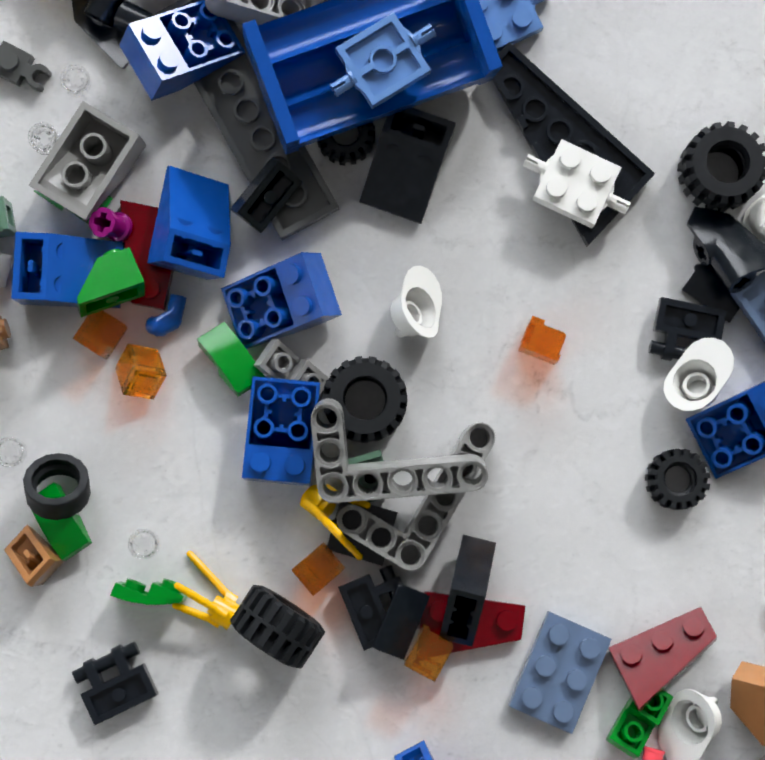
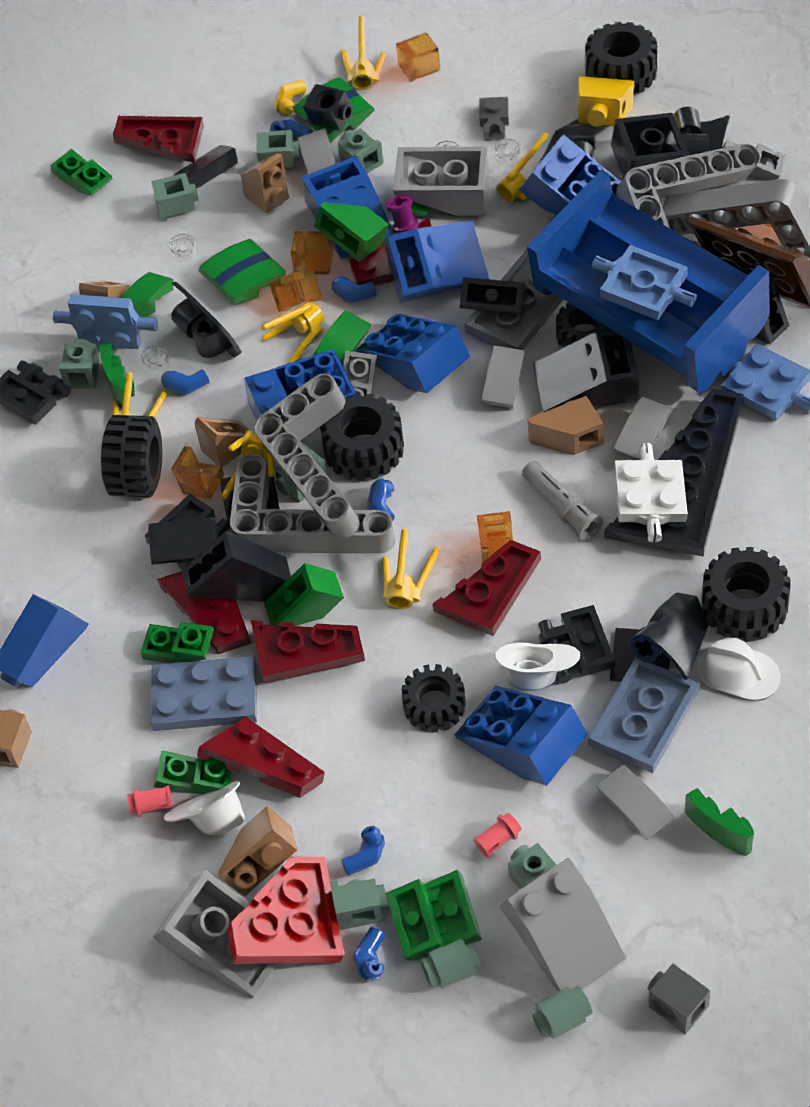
camera: 70 degrees right, 30 degrees down
(50, 466) = (172, 264): black tyre -> none
(77, 585) = (105, 320): none -> medium blue plate
(81, 410) = (241, 271): none -> green slope
(122, 487) = (205, 329): none -> black panel
(123, 620) = (80, 357): none -> sand green brick
(127, 101) = (509, 186): none -> yellow plant
(181, 381) = (304, 320): none -> yellow plant
(192, 532) = (184, 384): none -> blue arm
(286, 521) = (217, 436): none -> medium nougat slope
(362, 236) = (503, 376): none -> light grey slope
(418, 305) = (471, 435): white piece -> none
(428, 653) = (162, 568): clear orange panel -> none
(435, 419) = (379, 492): none -> blue arm
(458, 210) = (567, 427): none -> medium nougat slope
(494, 148) = (642, 427): none -> light grey slope
(497, 672) = (180, 644): none -> green slope
(515, 539) = (304, 596): none -> green slope
(543, 259) = (570, 508): none -> light grey pin
(549, 449) = (400, 590): none -> yellow plant
(564, 565) = (299, 650): none -> dark red wing
(592, 372) = (492, 590): none -> dark red wing

